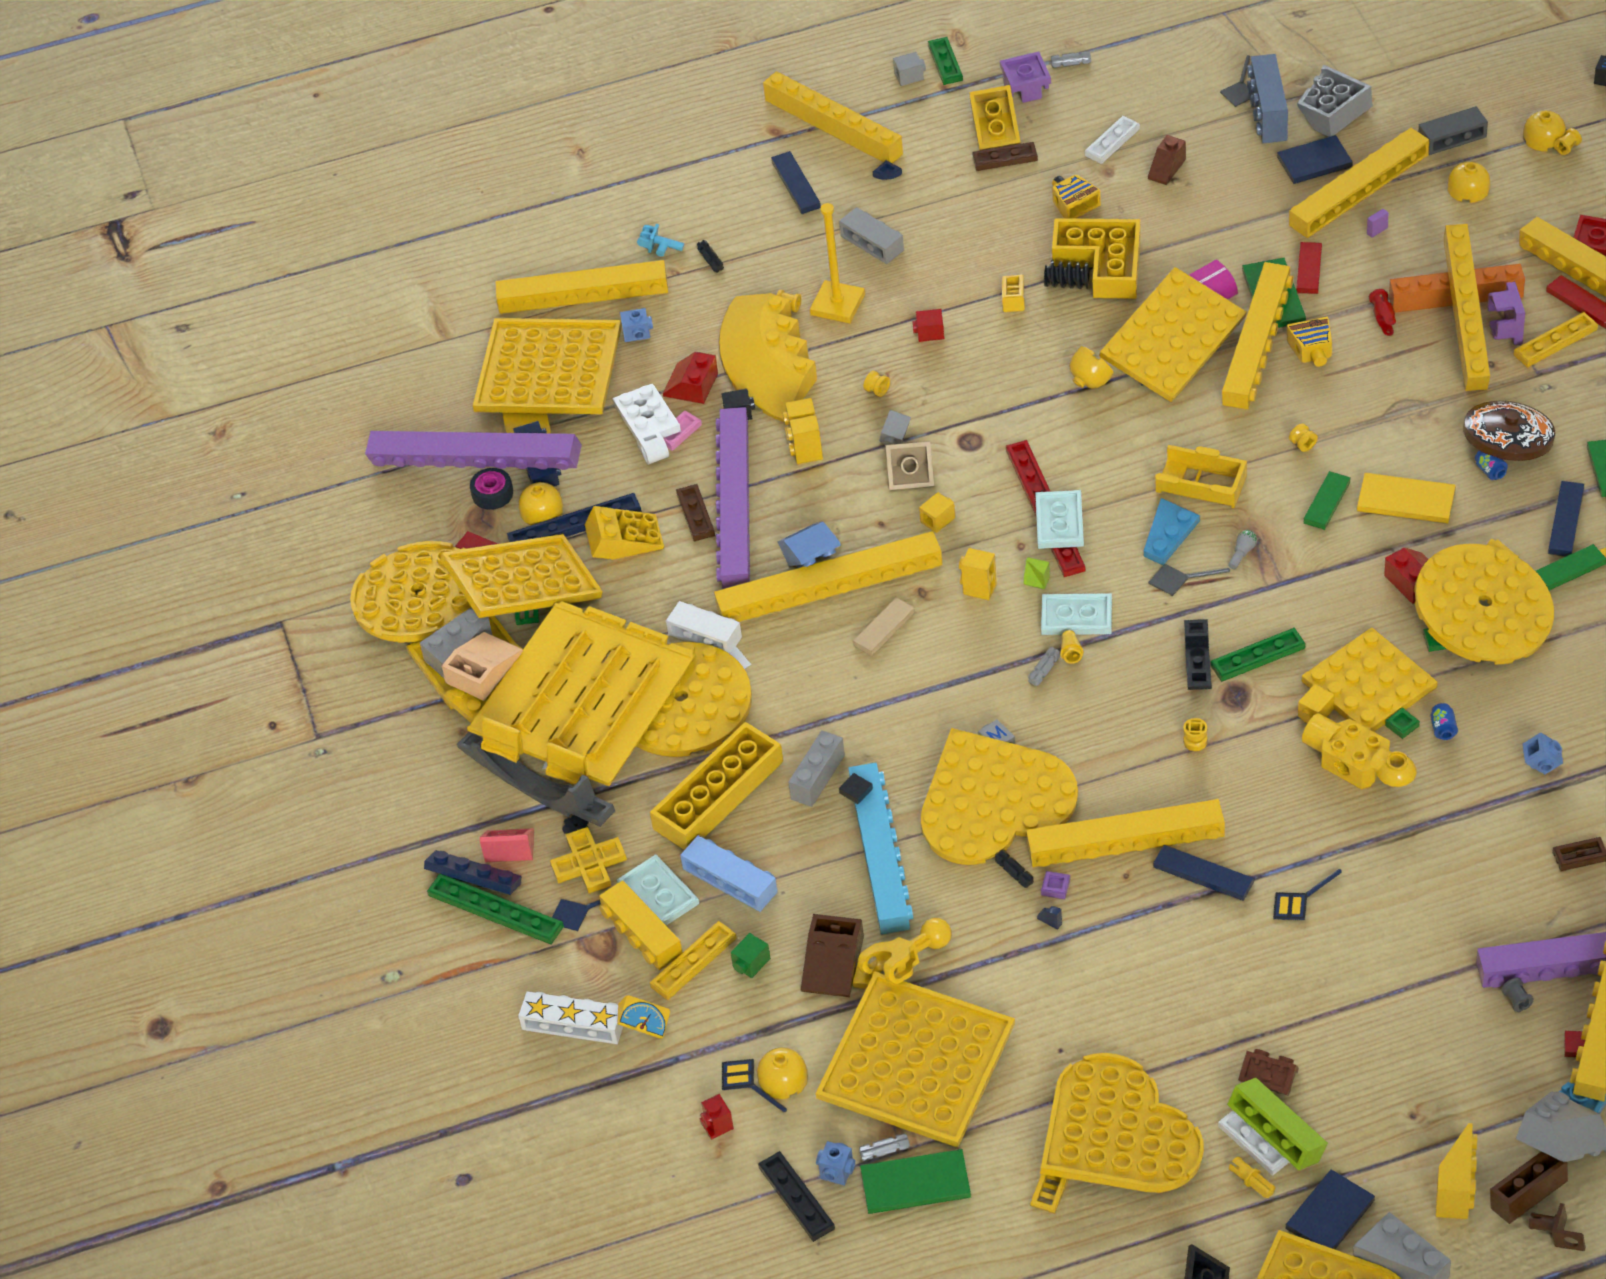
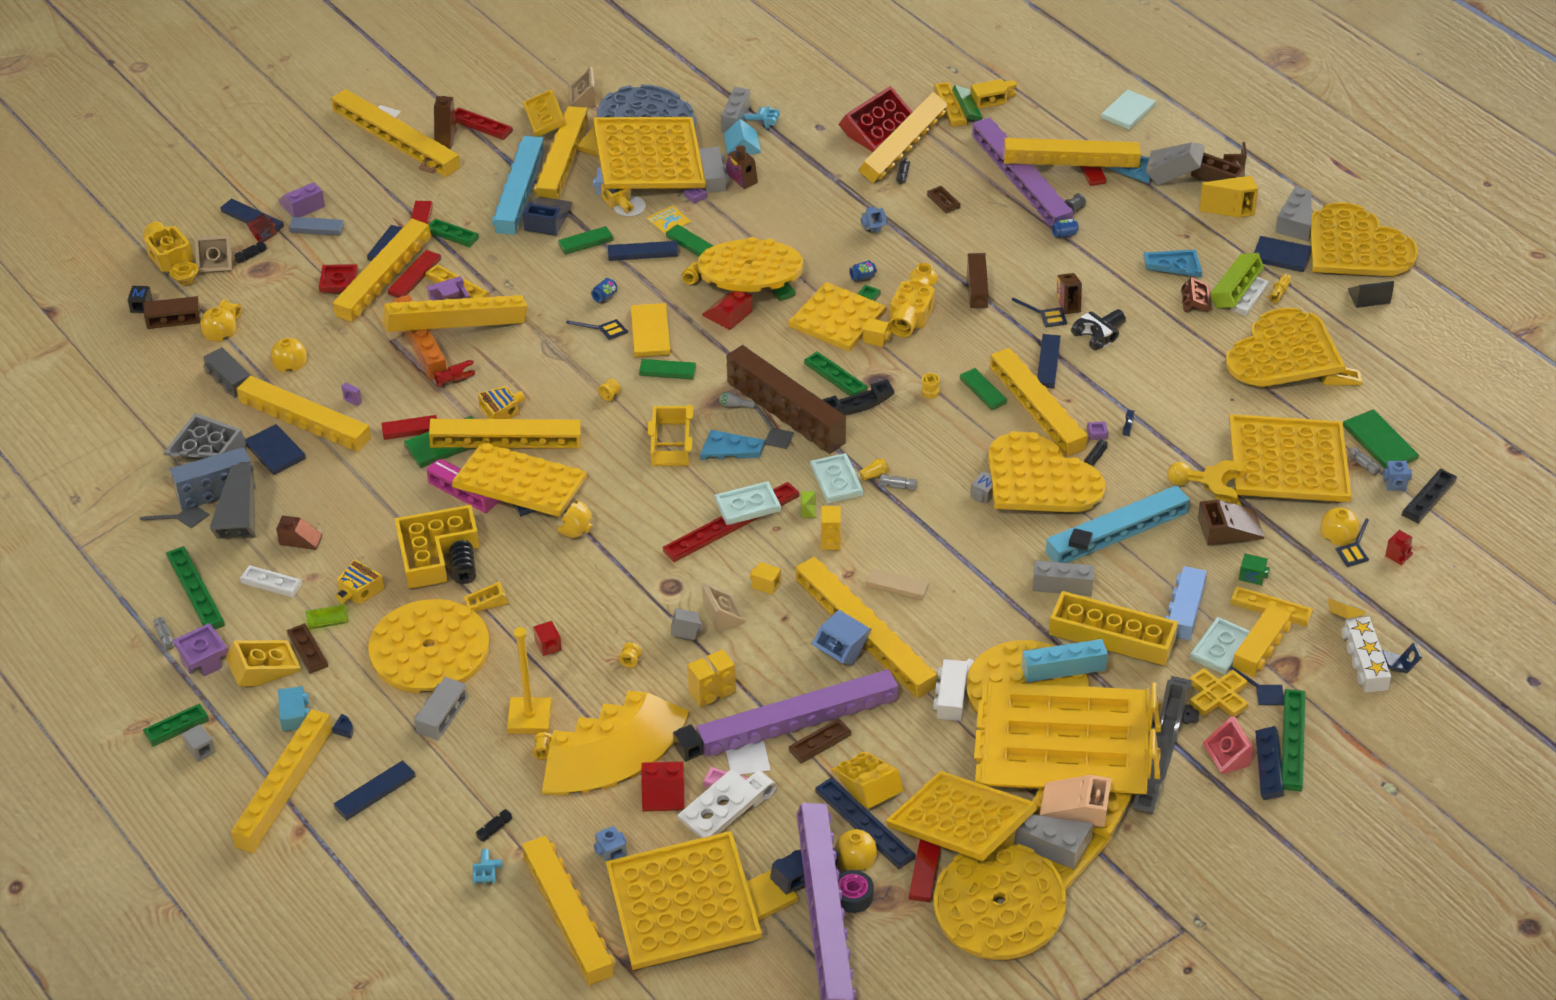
camera: 115 degrees left, 5 degrees down
(549, 1043) = (1402, 662): none -> dark blue bracket
(682, 720) = (1064, 660): none -> medium azure brick
(700, 455) = (748, 758): none -> white sticker
(923, 133) = (292, 707): none -> medium azure brick
(936, 246) = (399, 641): none -> yellow plate
(1042, 174) = (326, 616): none -> clear neon green tile
(1125, 86) = (194, 588): none -> green tile
(1176, 791) = (983, 389): none -> green tile
(1208, 105) = (236, 505): none -> dark grey slope
(1212, 581) = (786, 399): none -> reddish brown brick
(1242, 942) = (1102, 329): none -> black connector
(1319, 921) = (1069, 287): none -> reddish brown torso
(1350, 1073) = (1177, 262): none -> dark azure wing
(1371, 828) = (977, 280): none -> reddish brown slope
(1424, 464) = (610, 329): none -> piece
(1463, 965) = (1065, 228): none -> blue brick
(1509, 430) = (569, 284): dish -> none
(1578, 95) = (172, 312): none -> reddish brown brick

